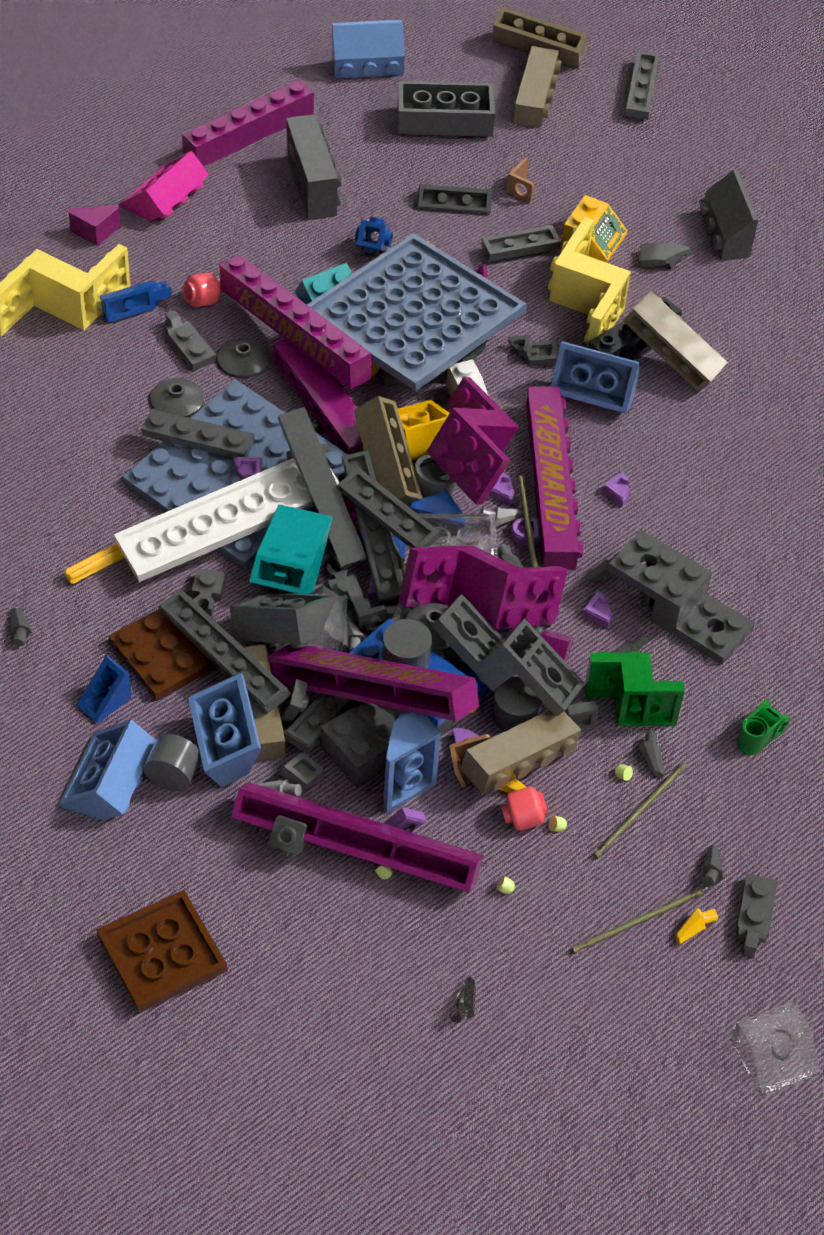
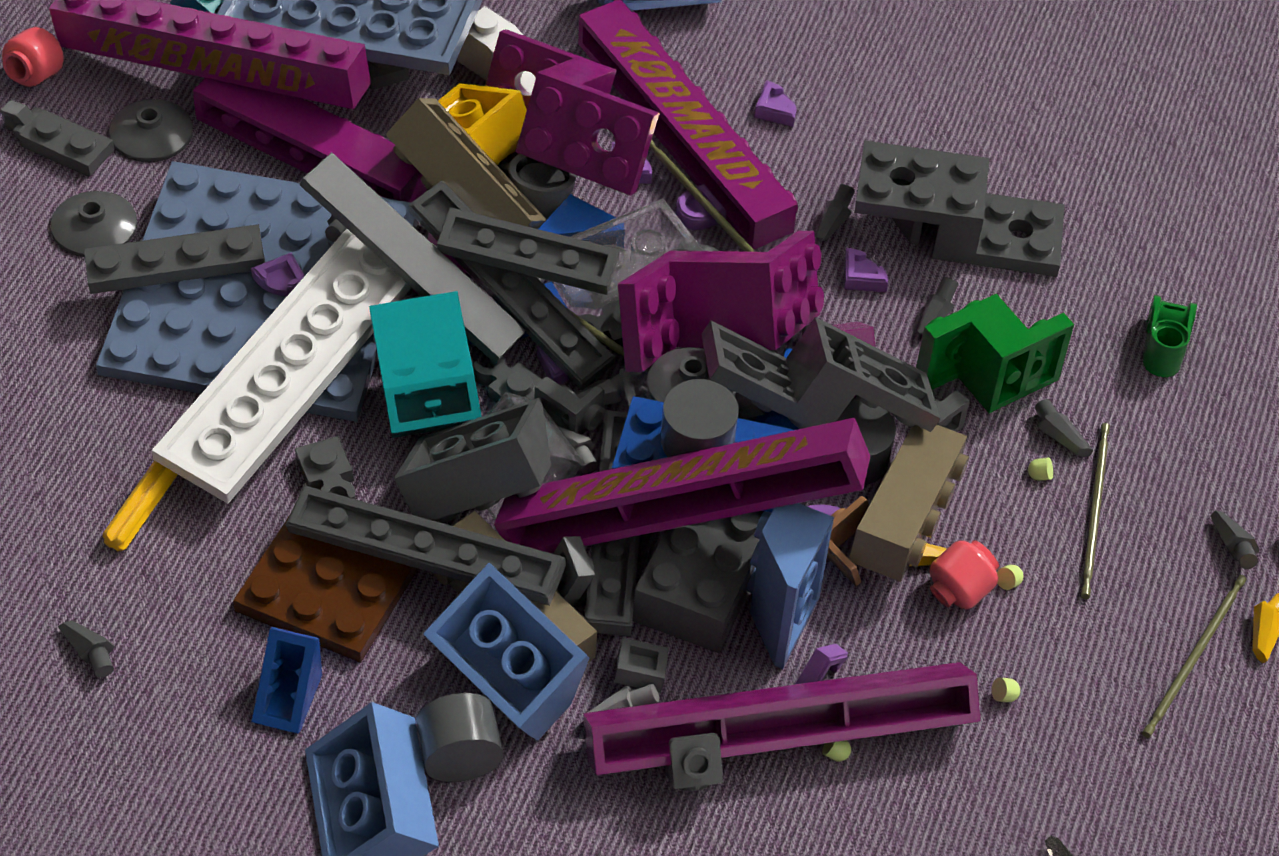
camera: 30 degrees left, 0 degrees up
(503, 515) = (664, 192): light grey bar -> none

